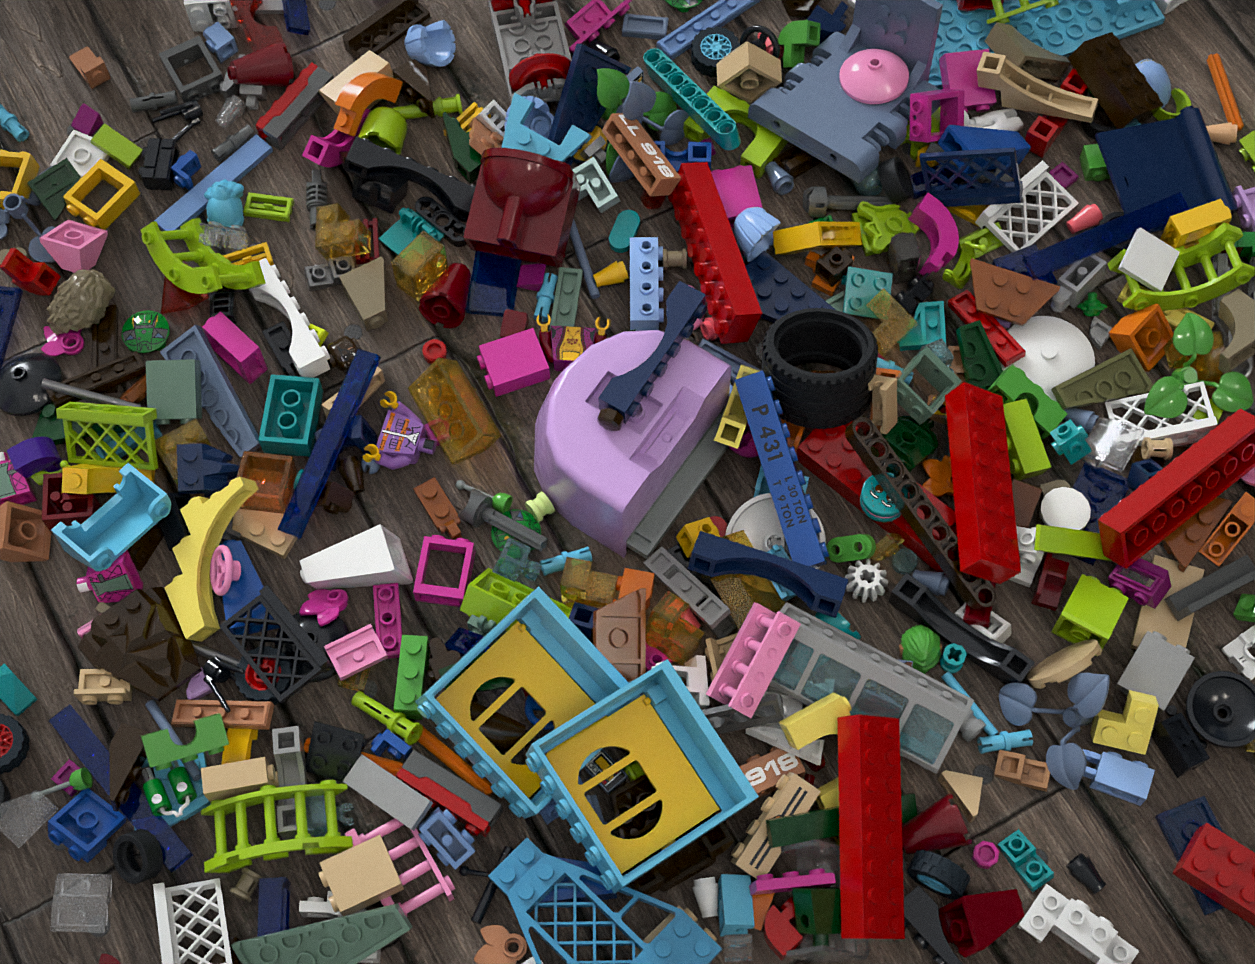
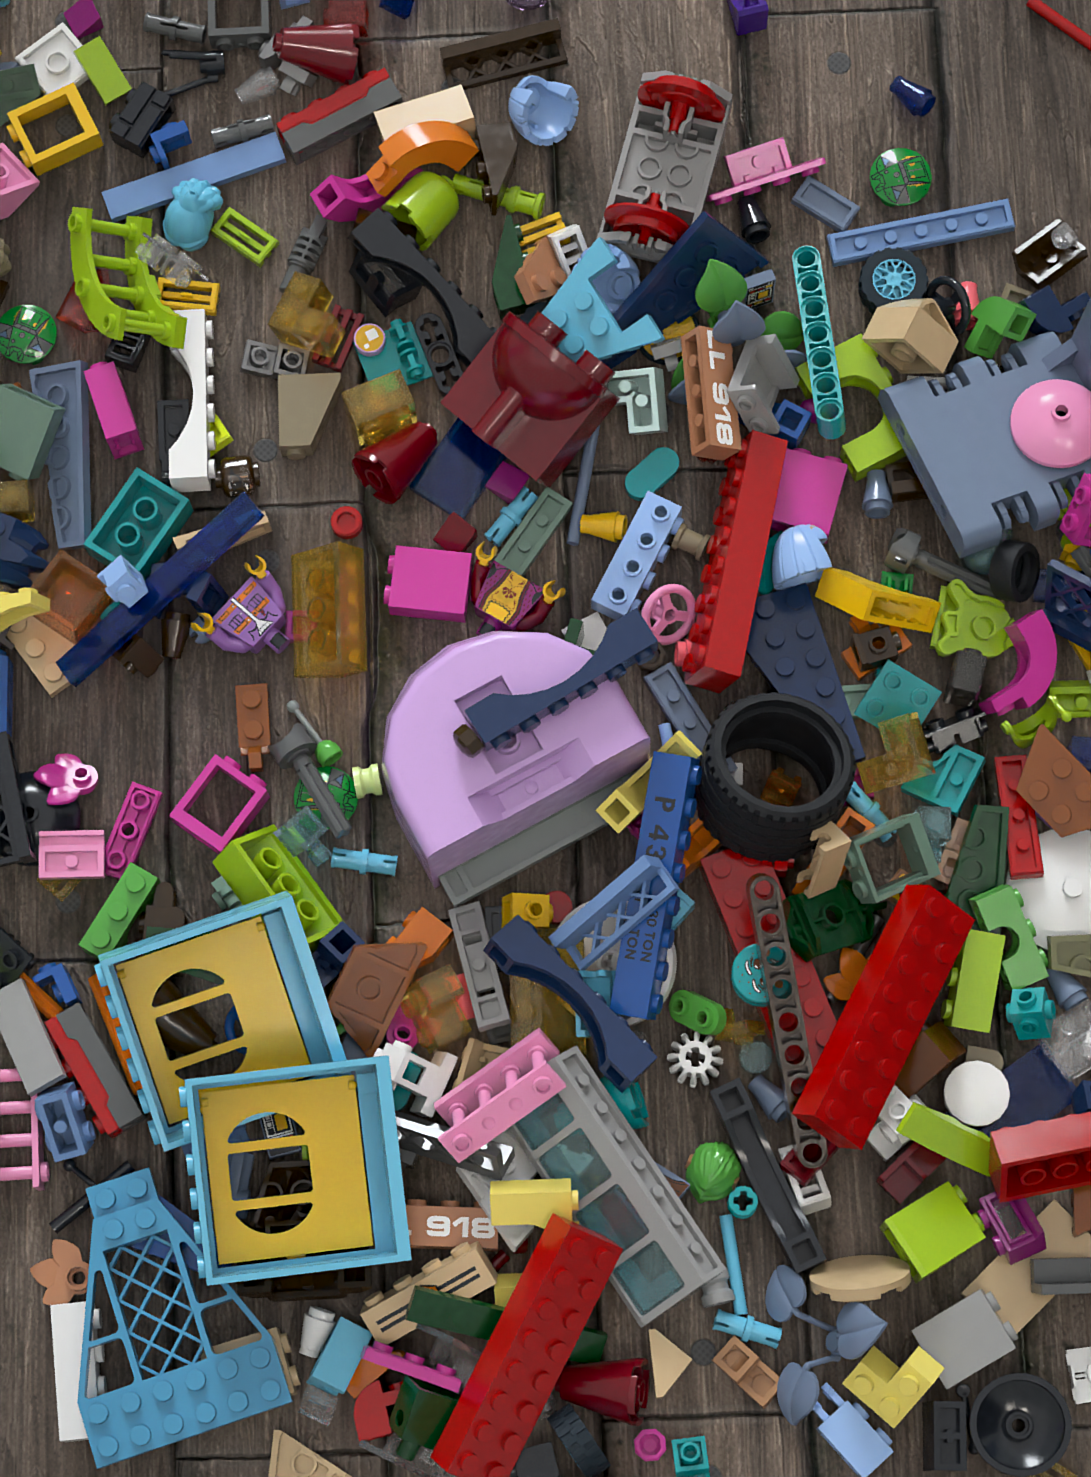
camera: 30 degrees right, 10 degrees up
(301, 448) = (123, 582): none -> light blue brick
(360, 561) = (136, 748): white slope -> none
(389, 230) = (369, 340): none -> tile
(394, 721) = (75, 959): lime pin -> none
(463, 641) = (197, 902): clear blue slope -> none
(586, 586) = (363, 902): clear yellow brick -> none
(668, 134) = (757, 381): none -> light grey panel
(756, 494) = (604, 904): none -> medium blue fence

